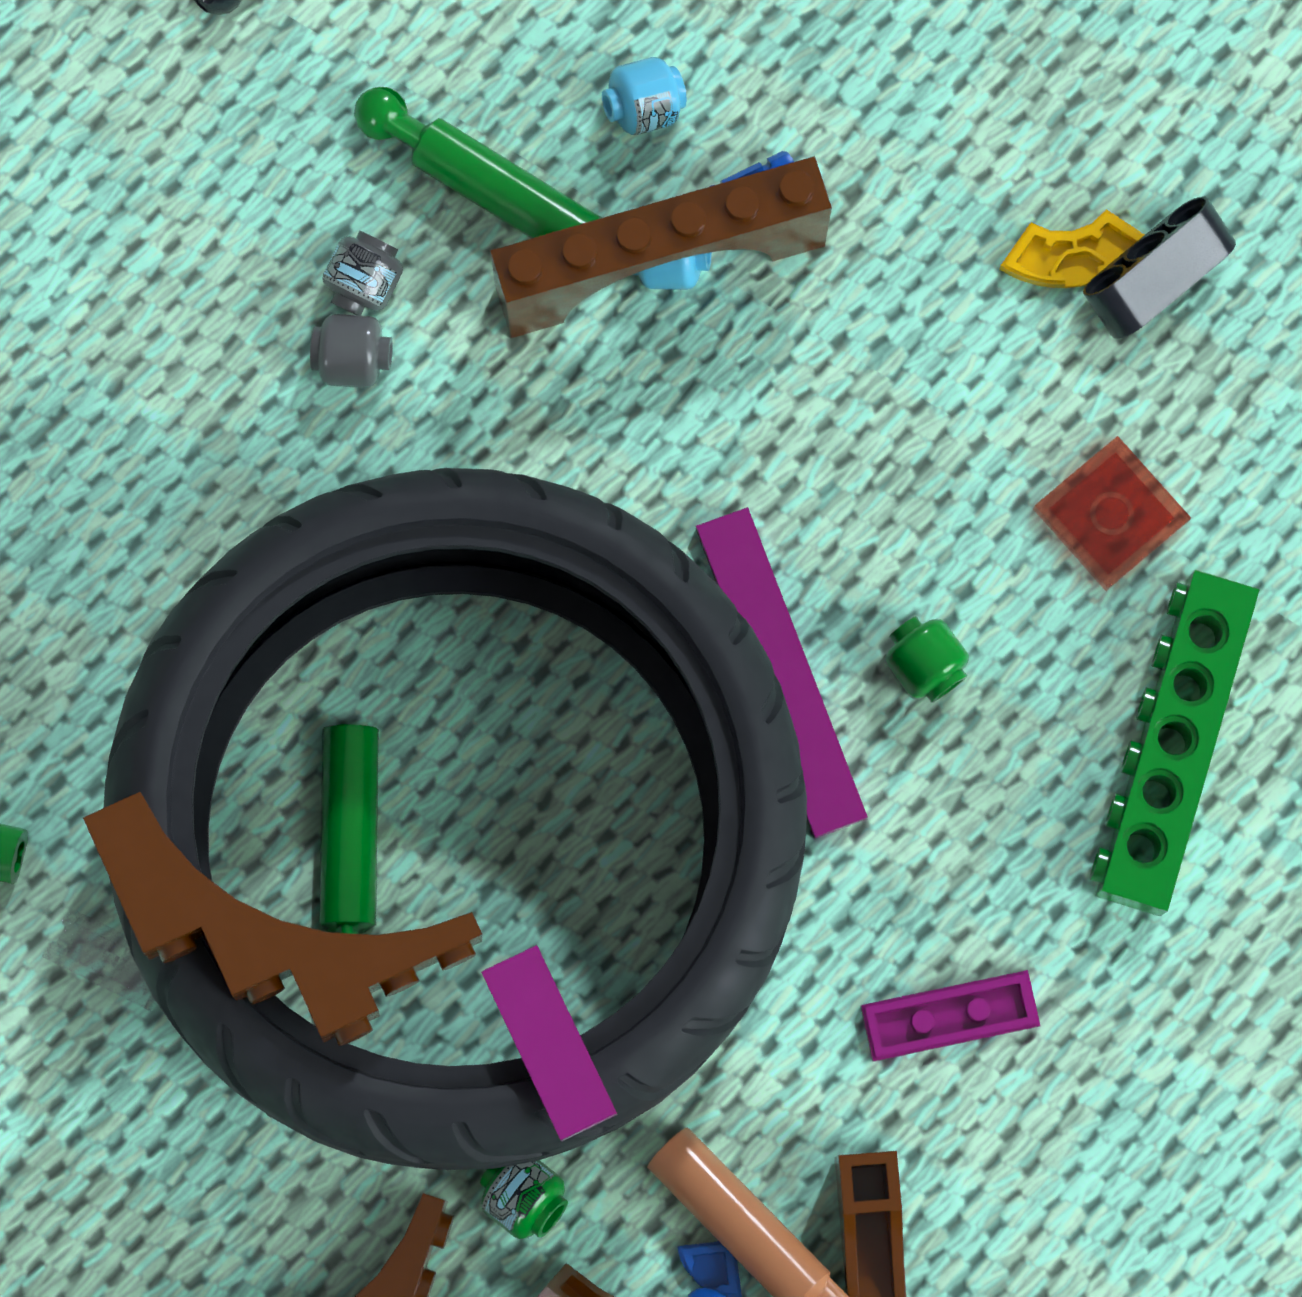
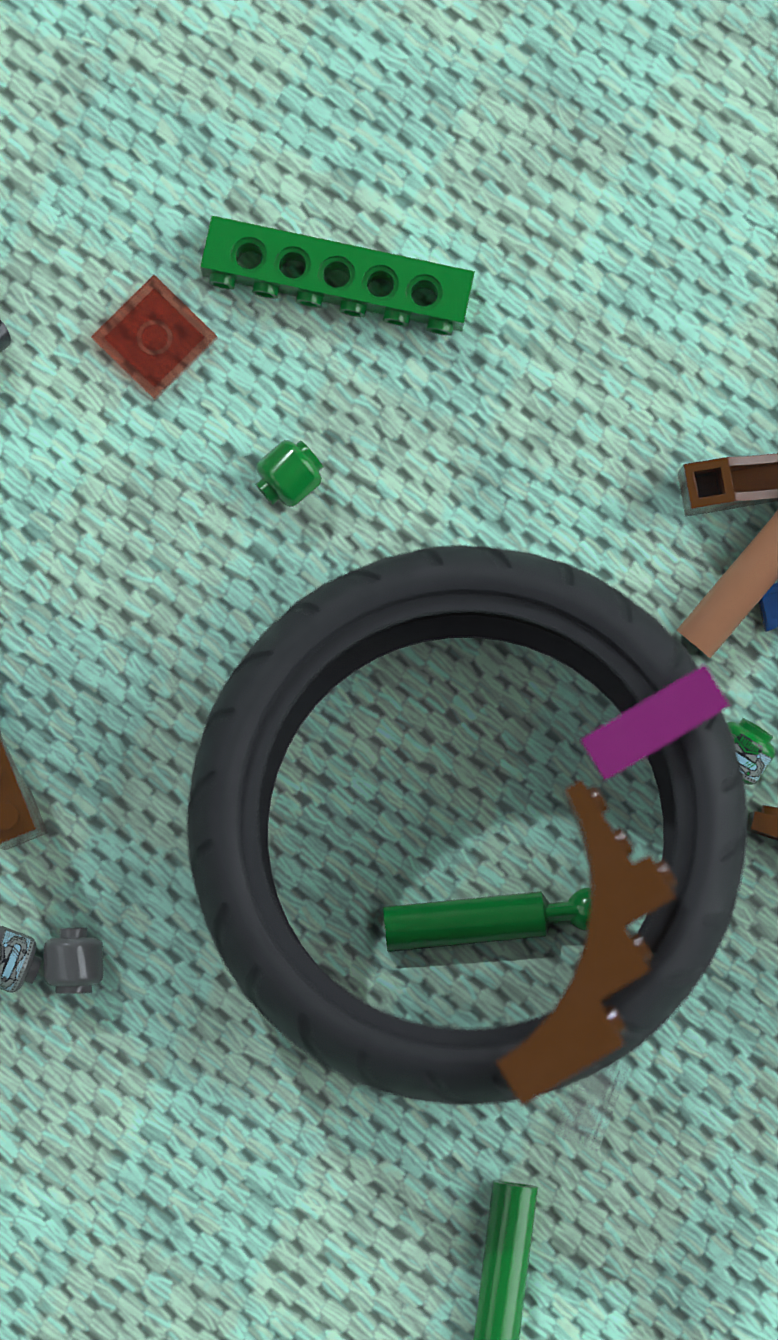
camera: 100 degrees left, 5 degrees up
(750, 584) = (255, 611): magenta tile -> none
(950, 1015) = (567, 436): magenta tile -> none

